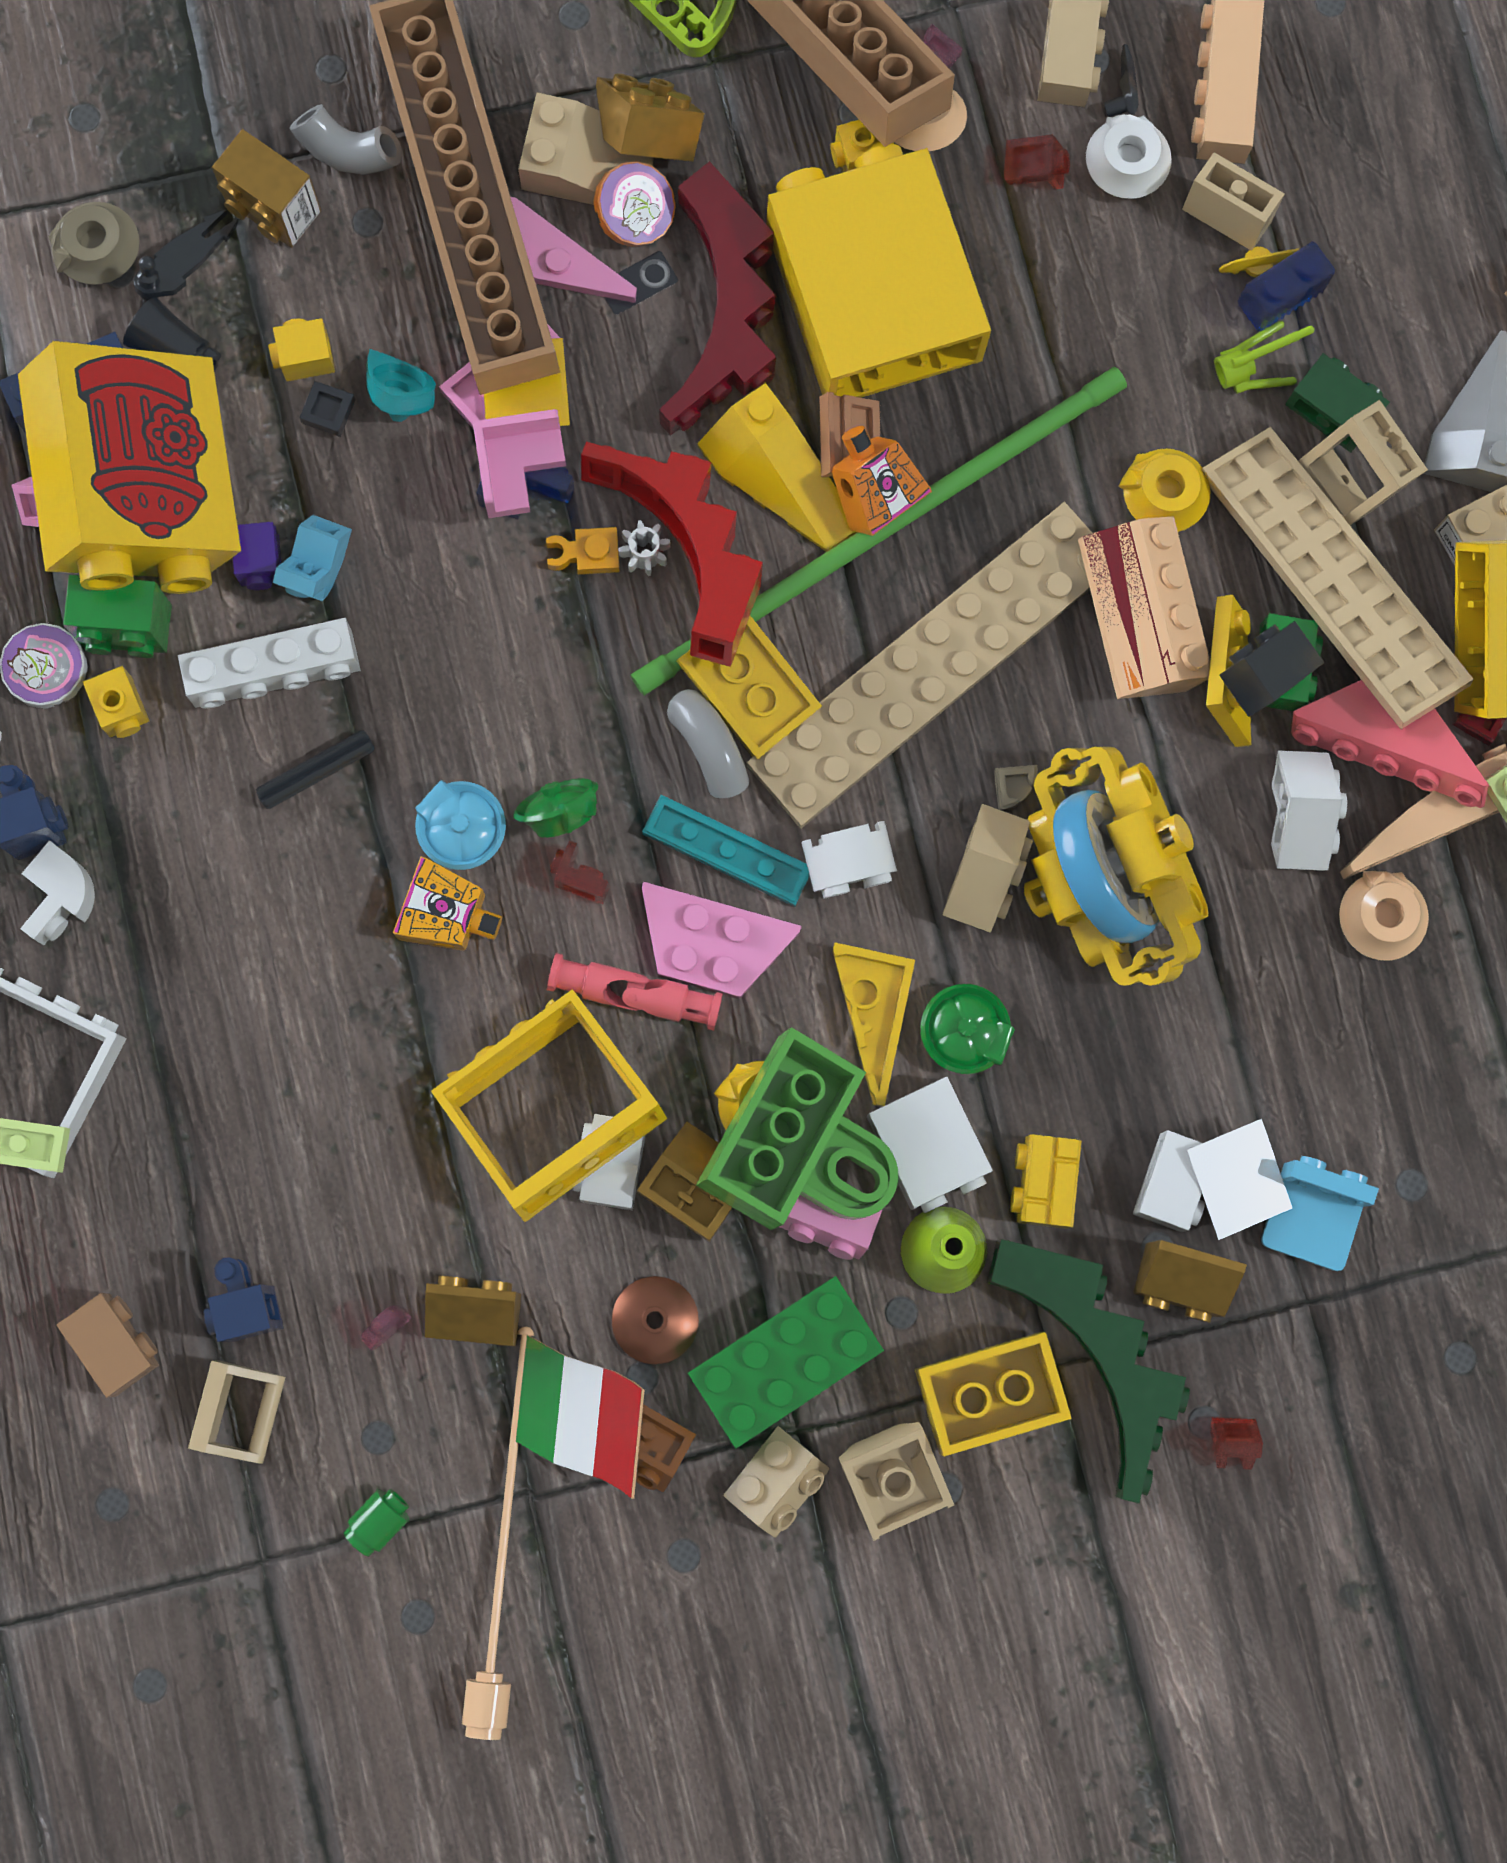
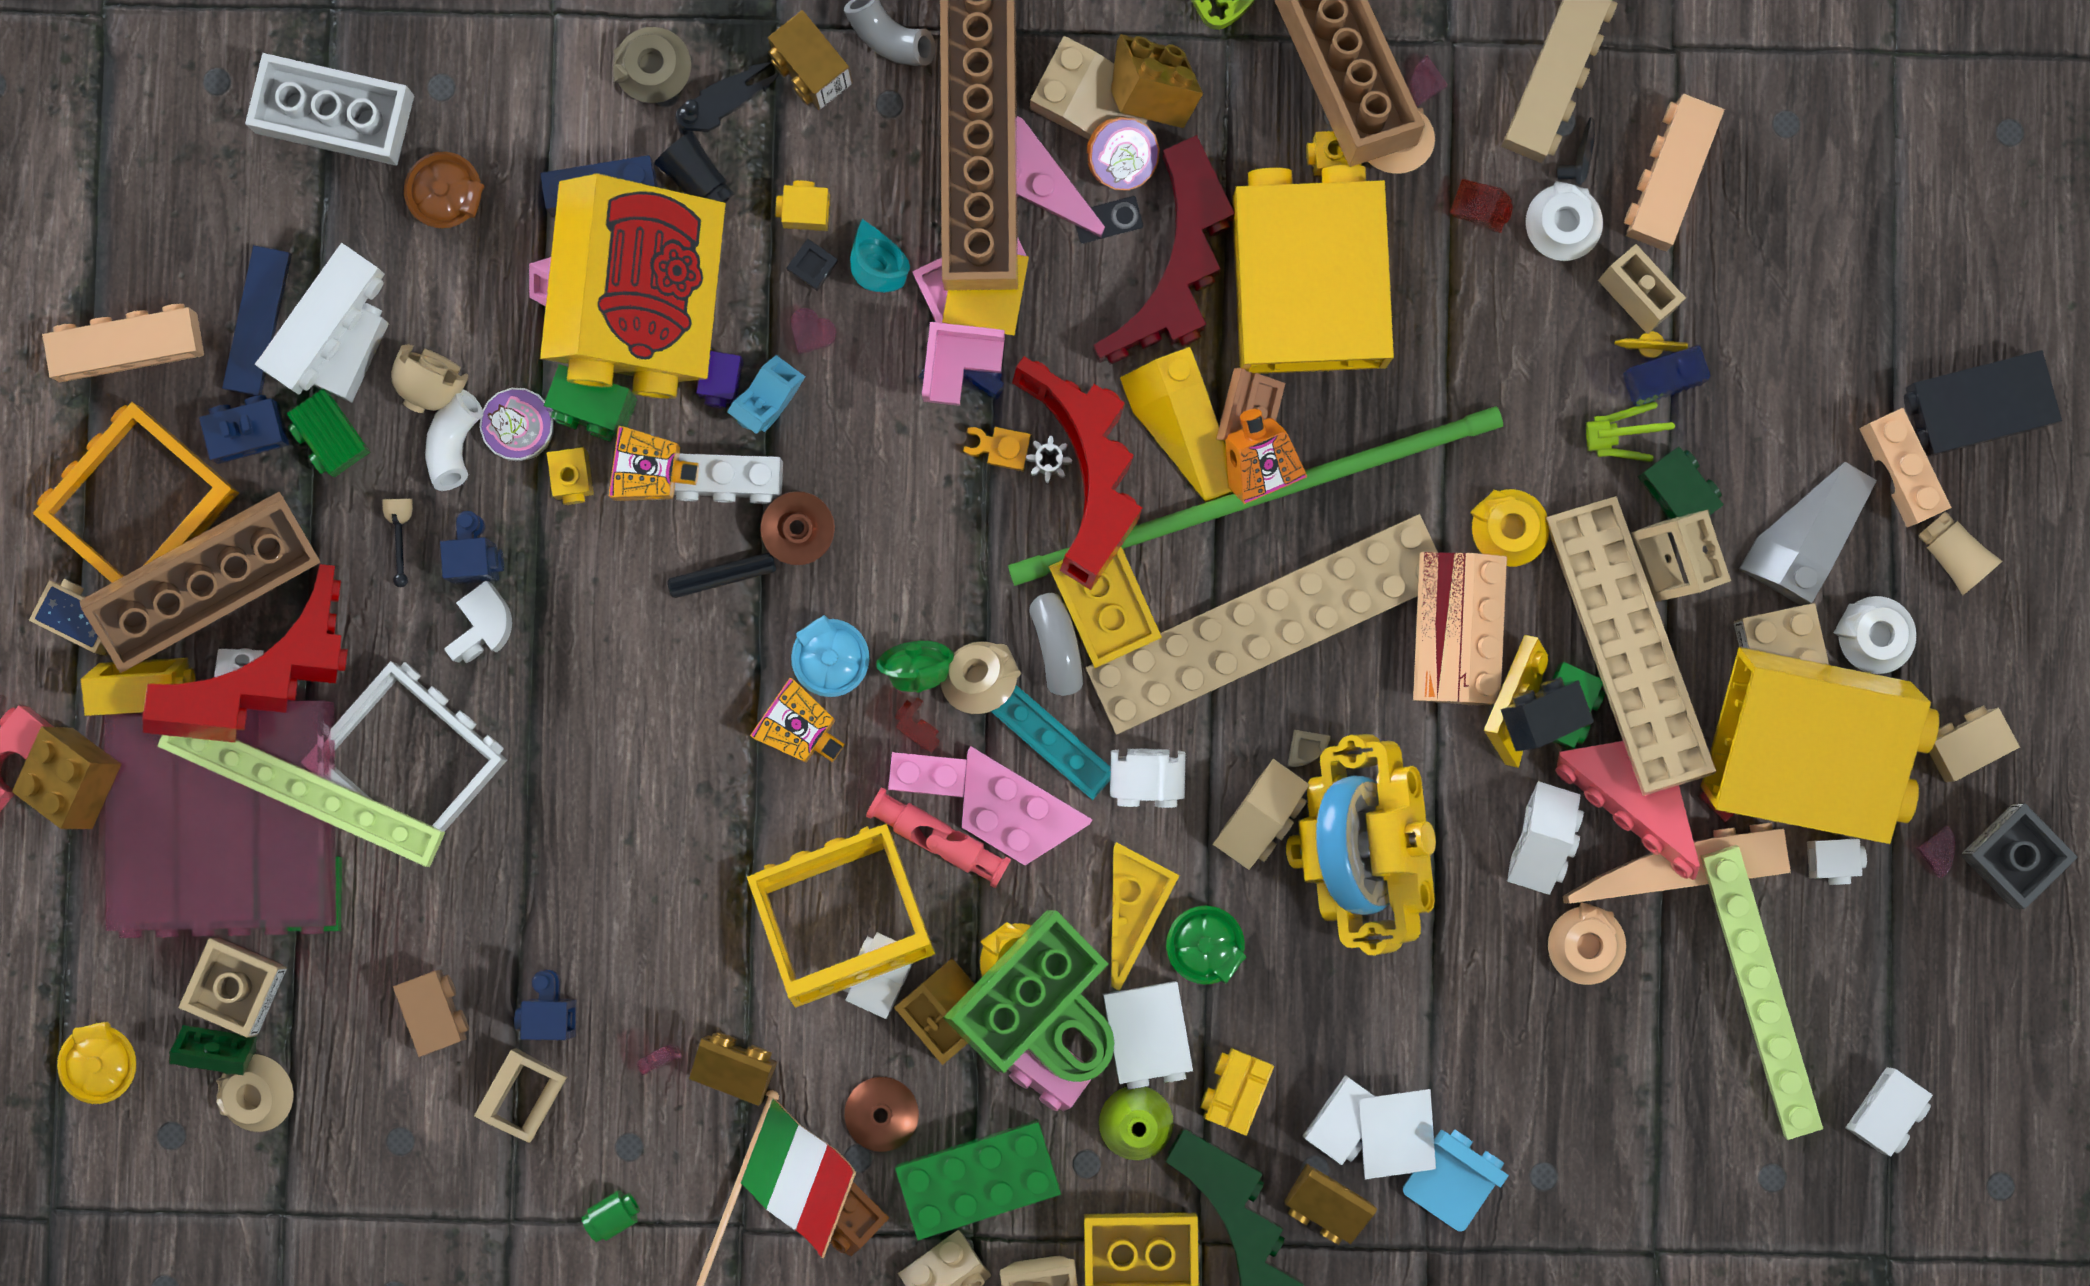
camera: 20 degrees right, 5 degrees up
(198, 662) = (647, 467): none -> torso
(346, 481) = (811, 332): none -> clear pink tile
(401, 677) = (803, 546): none -> copper dish
(604, 924) = (927, 774): none -> bright pink brick
(634, 803) = (980, 677): none -> tan piece

